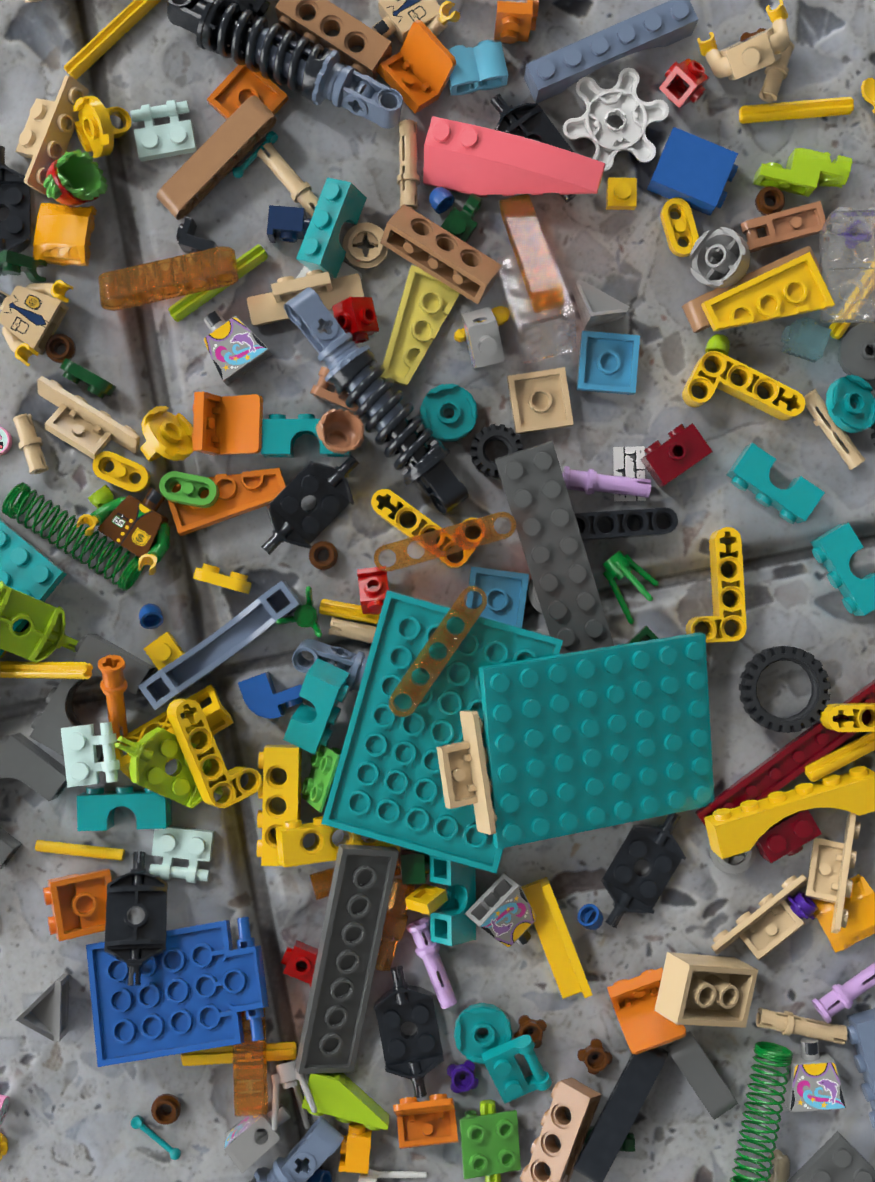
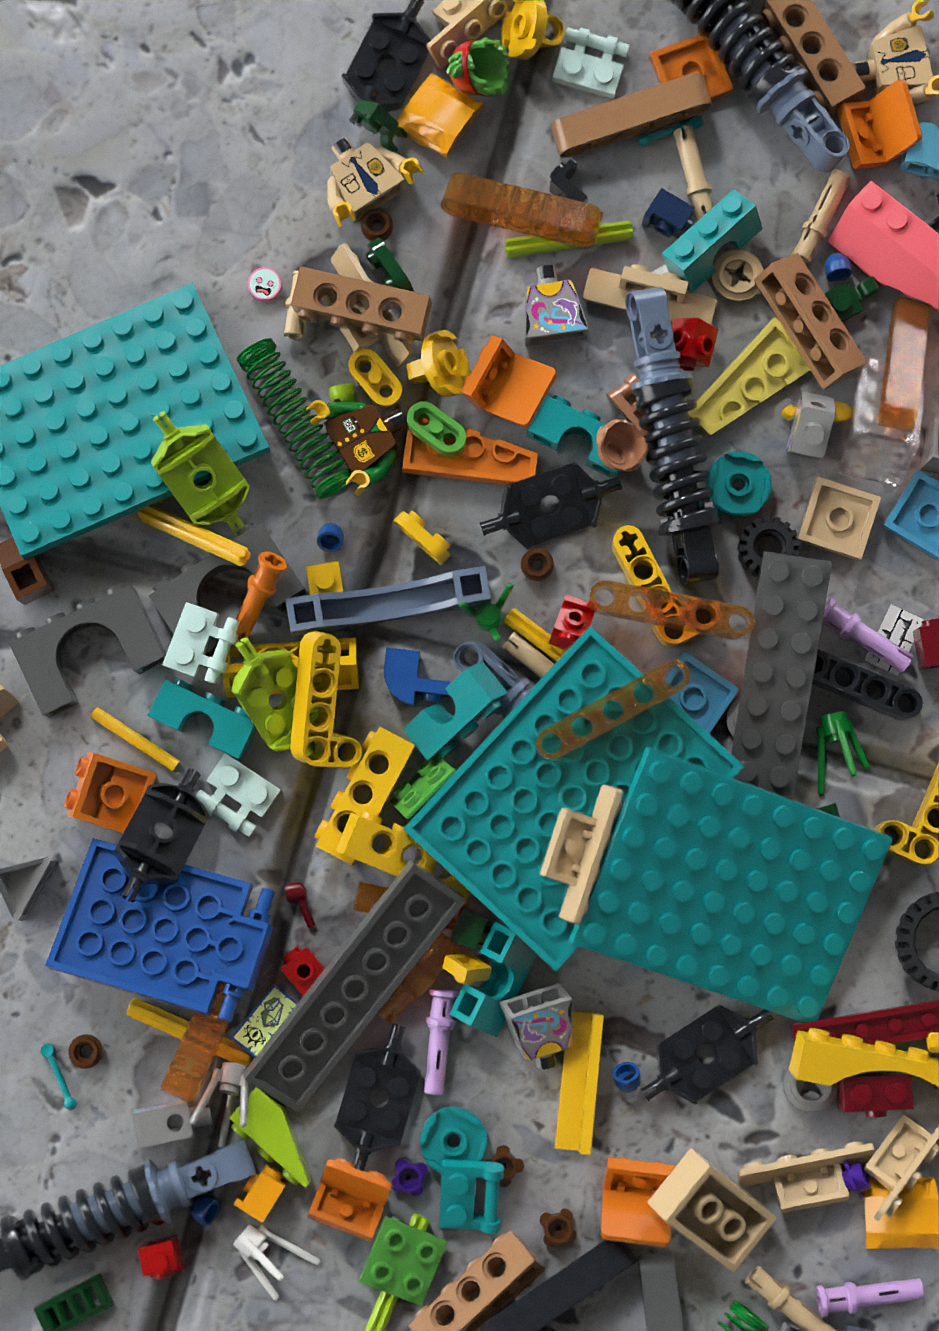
camera: 35 degrees right, 5 degrees down
(31, 425) = (315, 284): none -> medium nougat brick
(267, 904) = (297, 892): none -> dark red hand
(291, 1017) = (263, 1021): none -> tile

